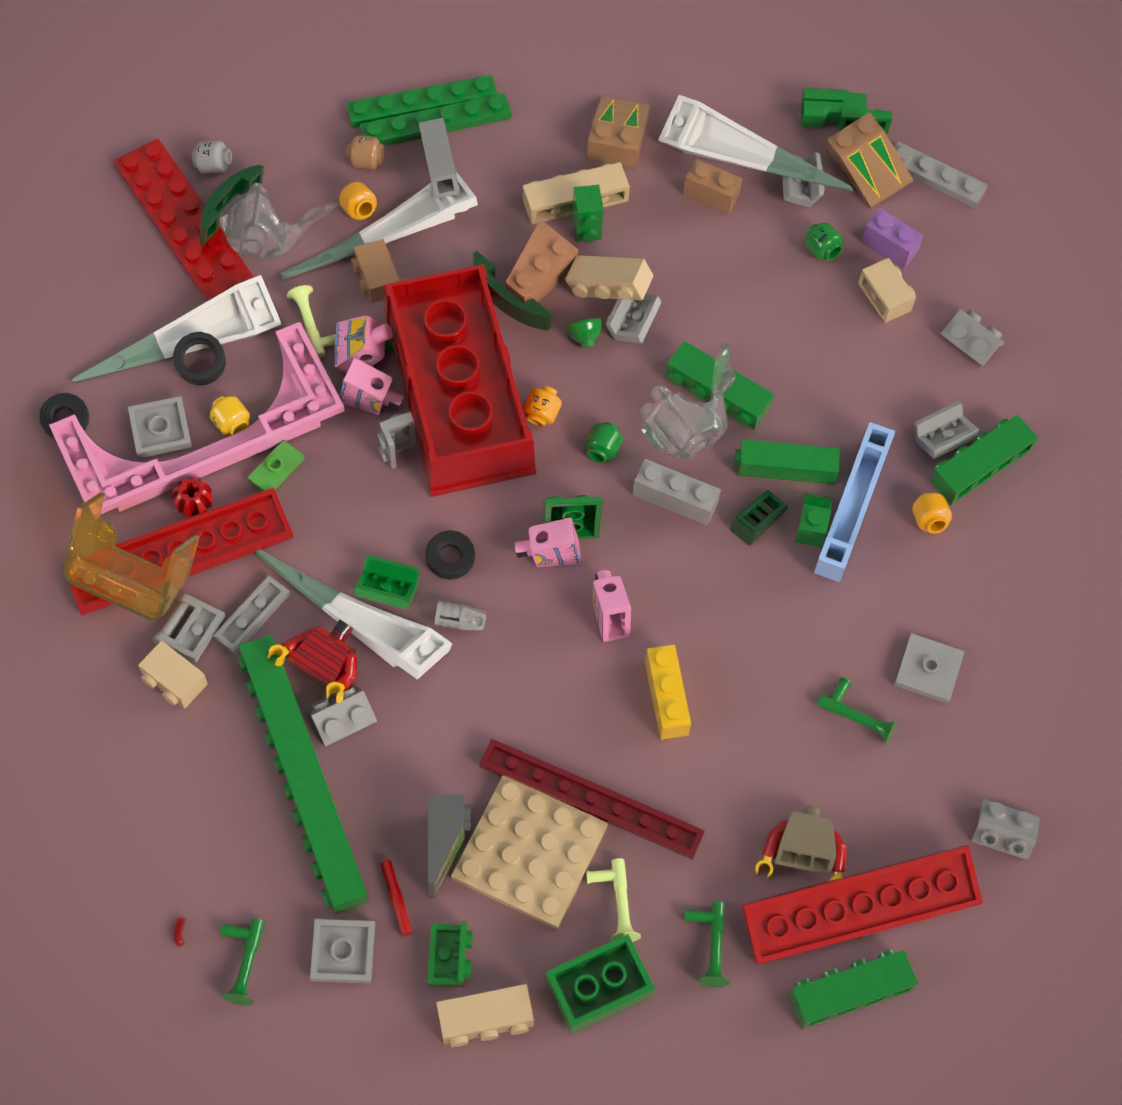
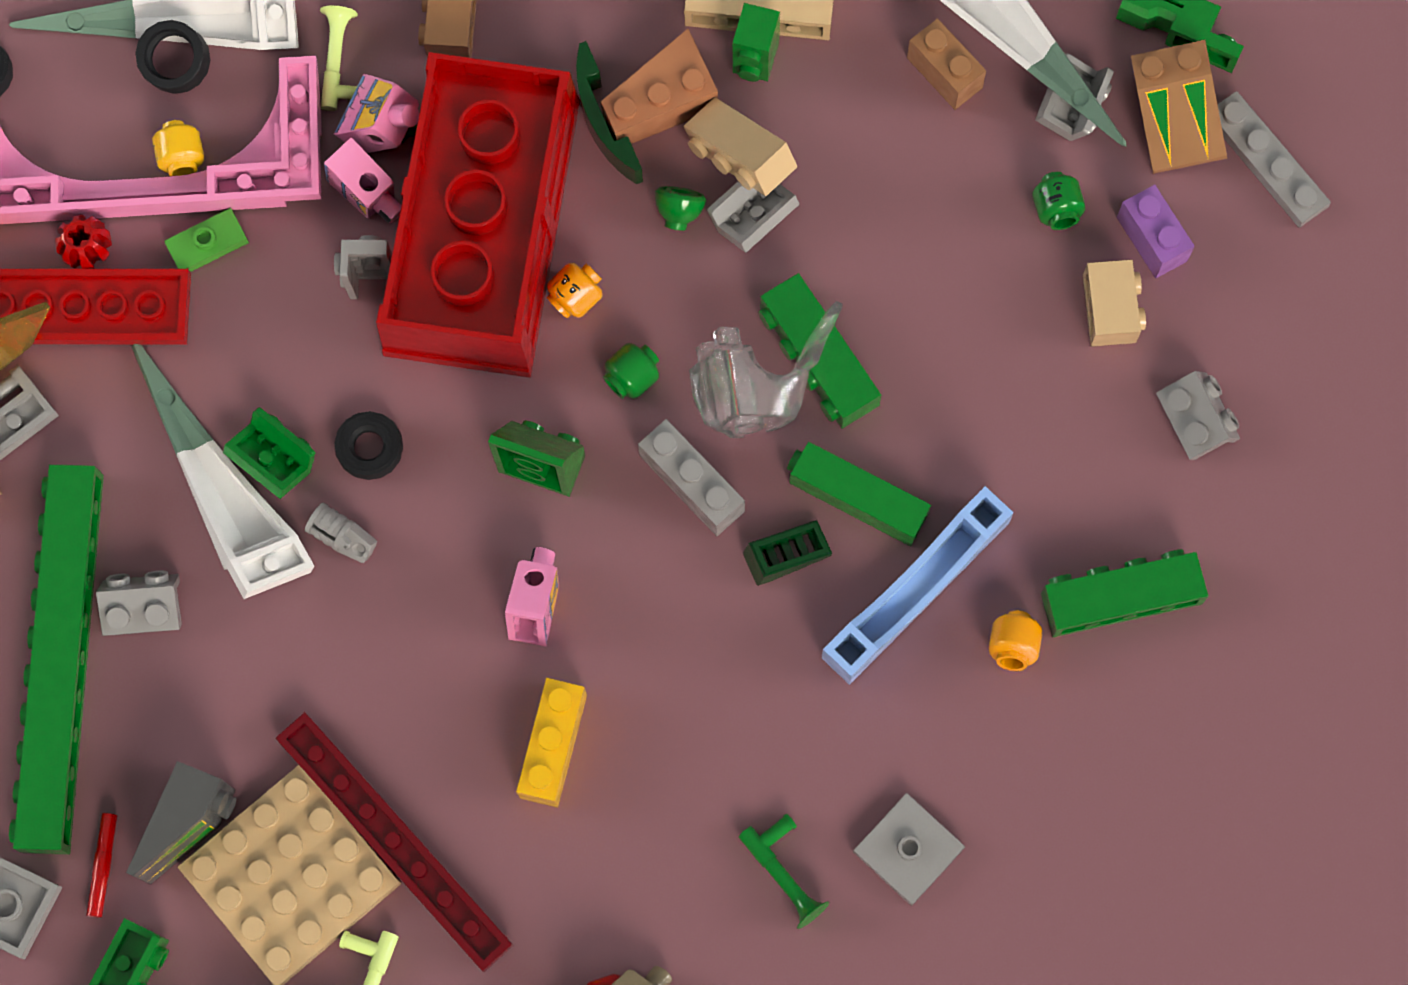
camera: 30 degrees right, 10 degrees up
(159, 427) = (86, 130): light grey plate -> none
(251, 614) = (91, 425): light grey tile -> none
(322, 657) = (145, 520): torso -> none
(551, 544) = (497, 486): bright pink torso -> none
(814, 520) = (856, 583): green slope -> none
(944, 430) = (1090, 534): light grey bracket -> none

